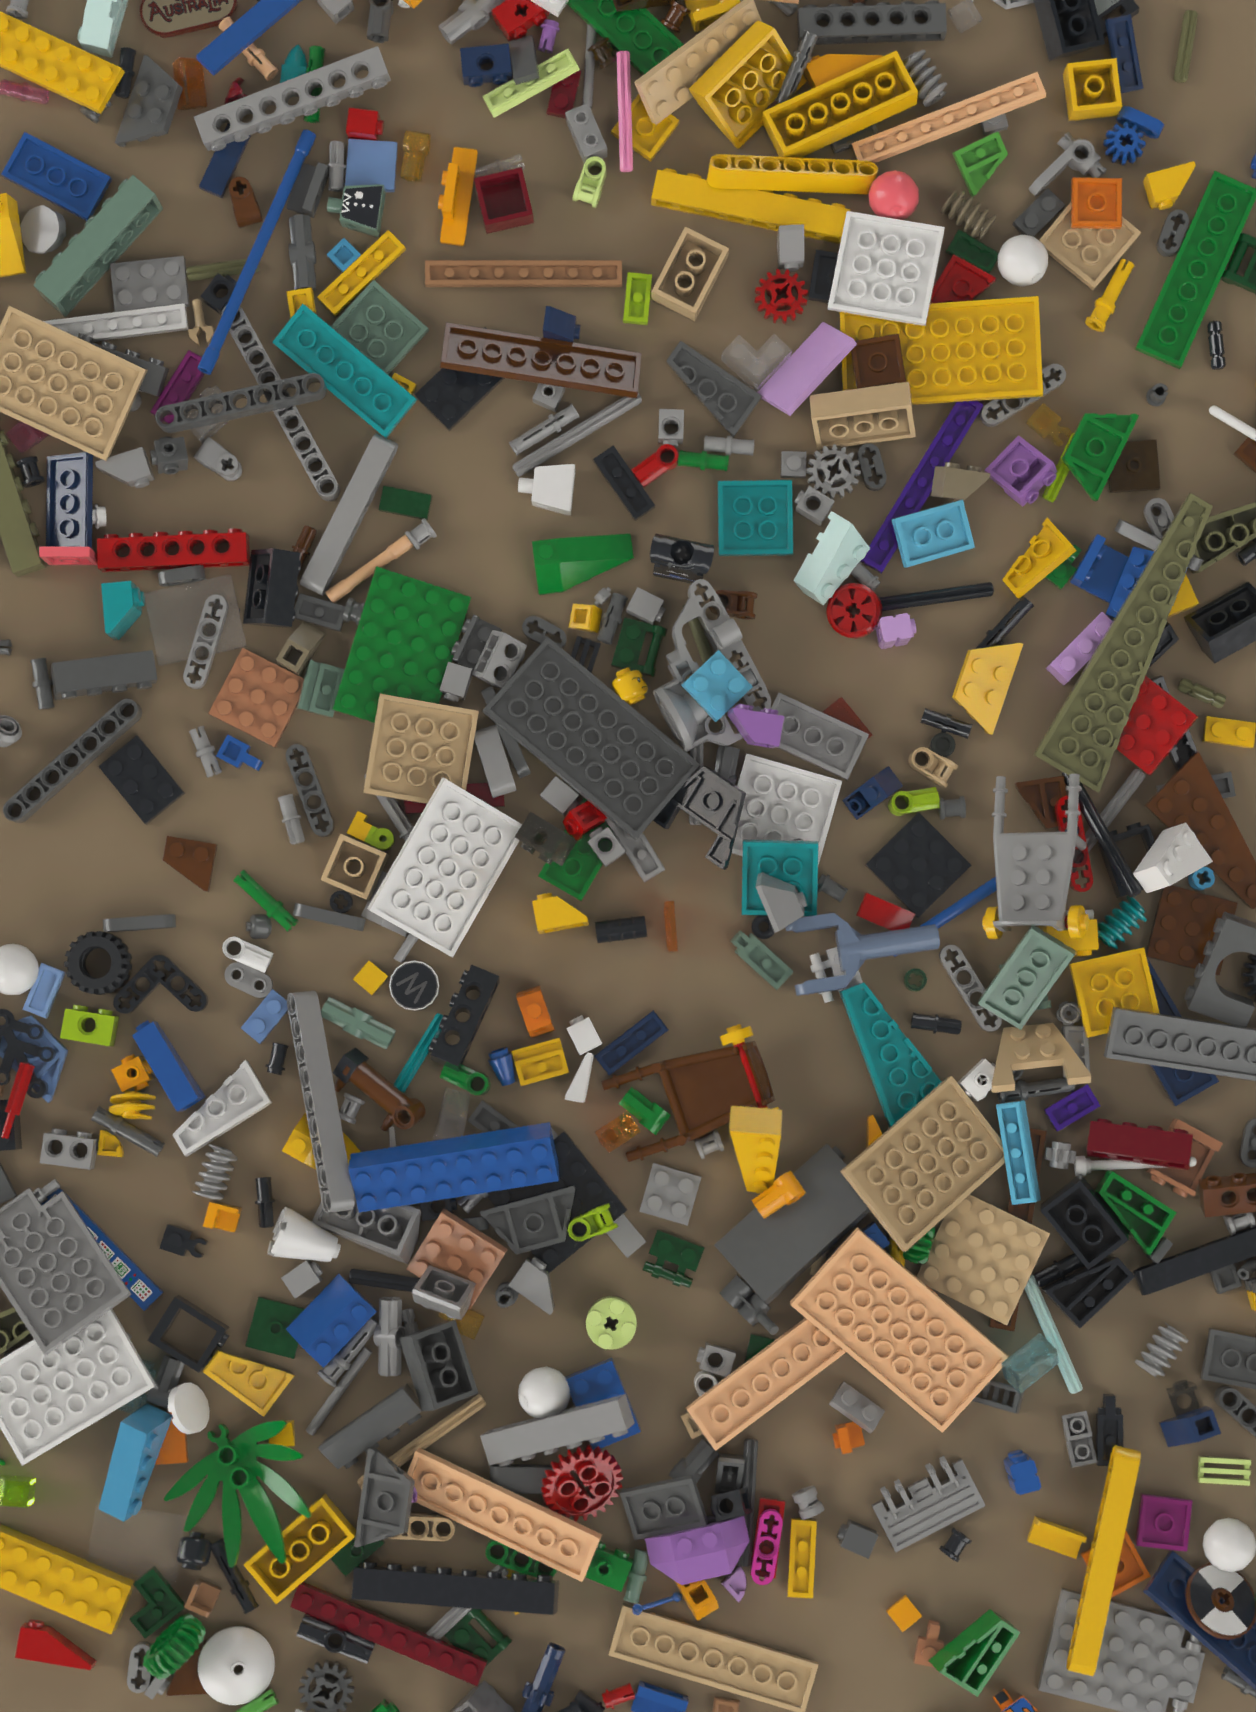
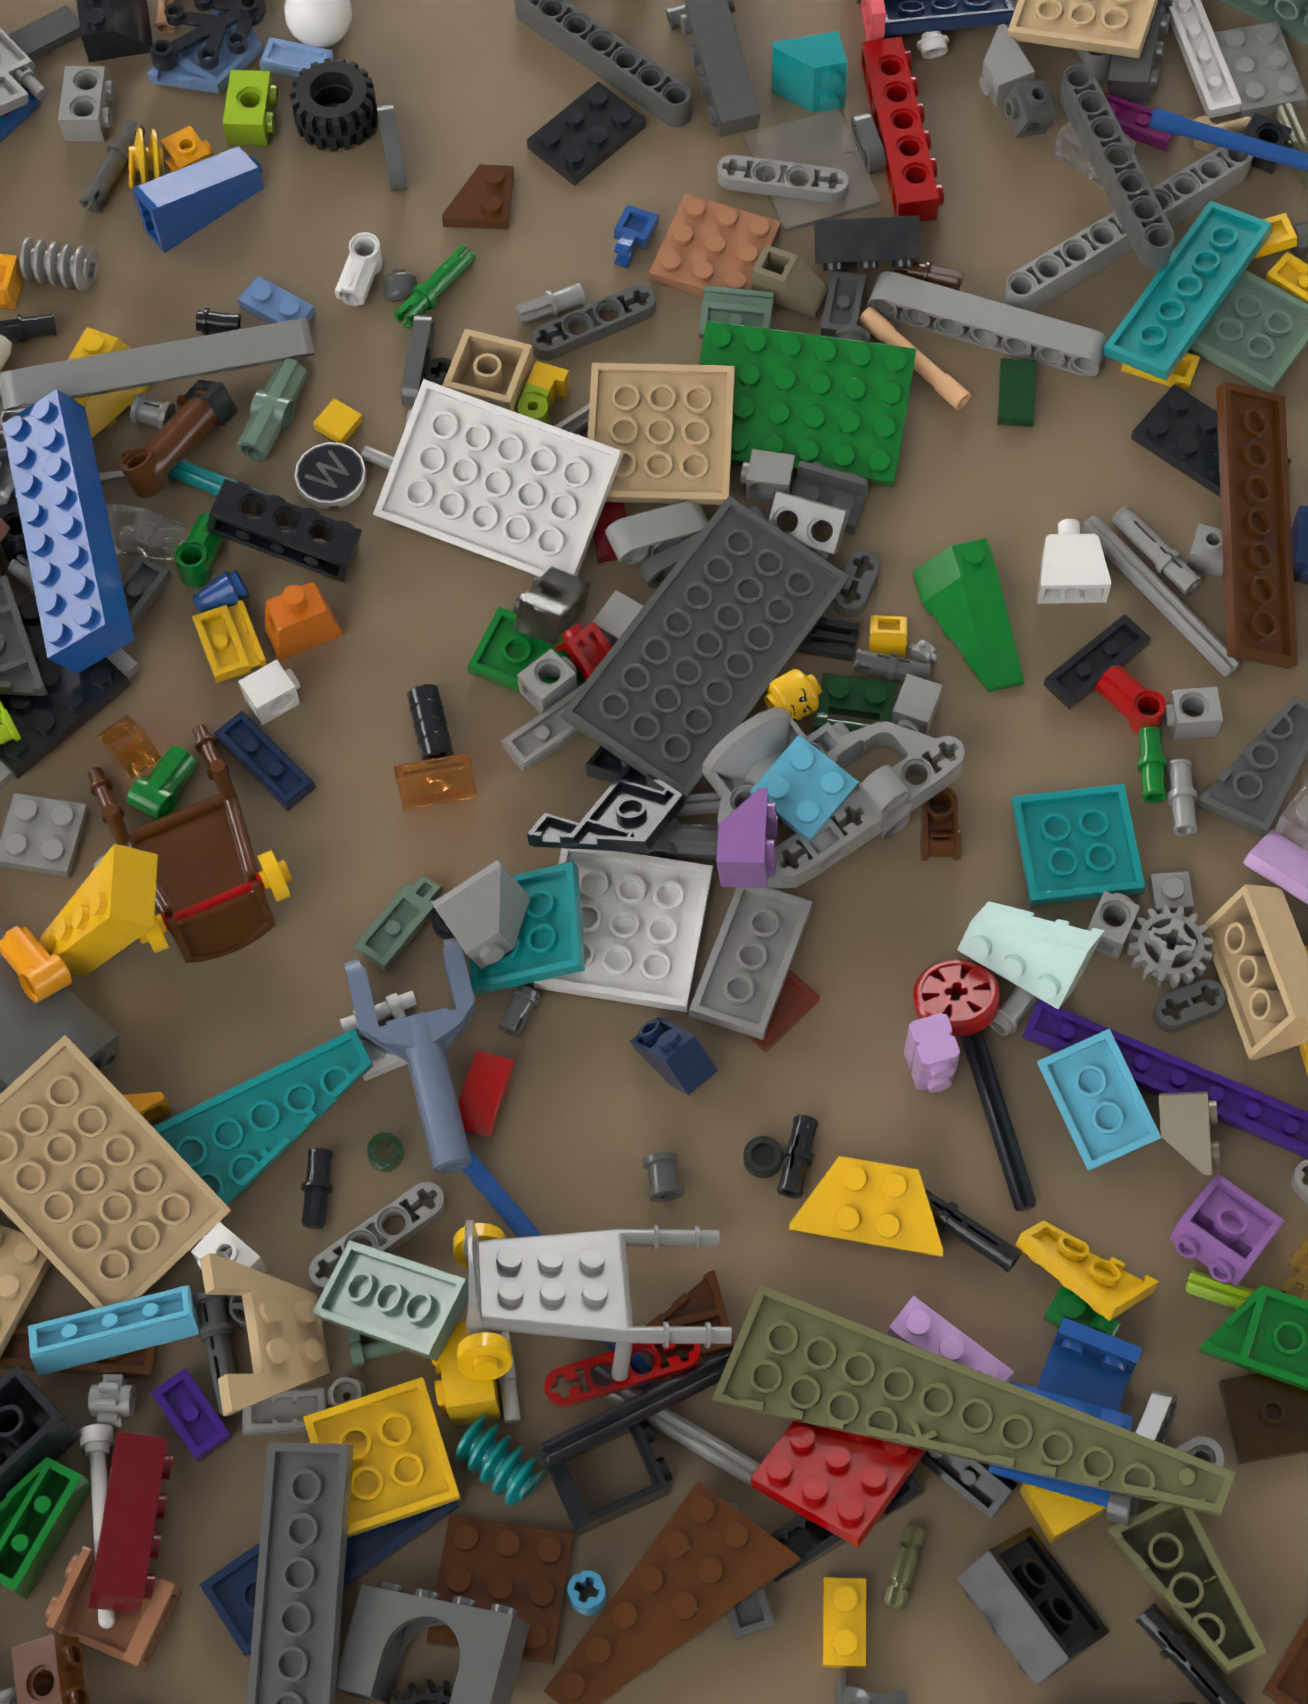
camera: 85 degrees right, 20 degrees down
(17, 1095) = (150, 26): red axle -> none
(109, 1145) = (93, 151): yellow tile -> none
(155, 978) = (318, 186): black beam -> none
(205, 751) = (632, 195): light grey pin -> none
(216, 458) = (1034, 168): light grey piece -> none
(226, 1108) = (145, 269): white wing -> none
(248, 979) = (325, 278): light grey plate -> none
(420, 534) = (974, 411): light grey bush -> none
(555, 914) = (440, 618): yellow slope -> none
(579, 1086) = (203, 695): white slope -> none
(680, 558) = (994, 730): black piece -> none
(915, 800) = (667, 1119): lime piece -> none
(918, 865) = (567, 1139): black plate -> none
(933, 766) = (724, 1146): tan piece -> none
(1171, 858) = (610, 1521): white wedge -> none

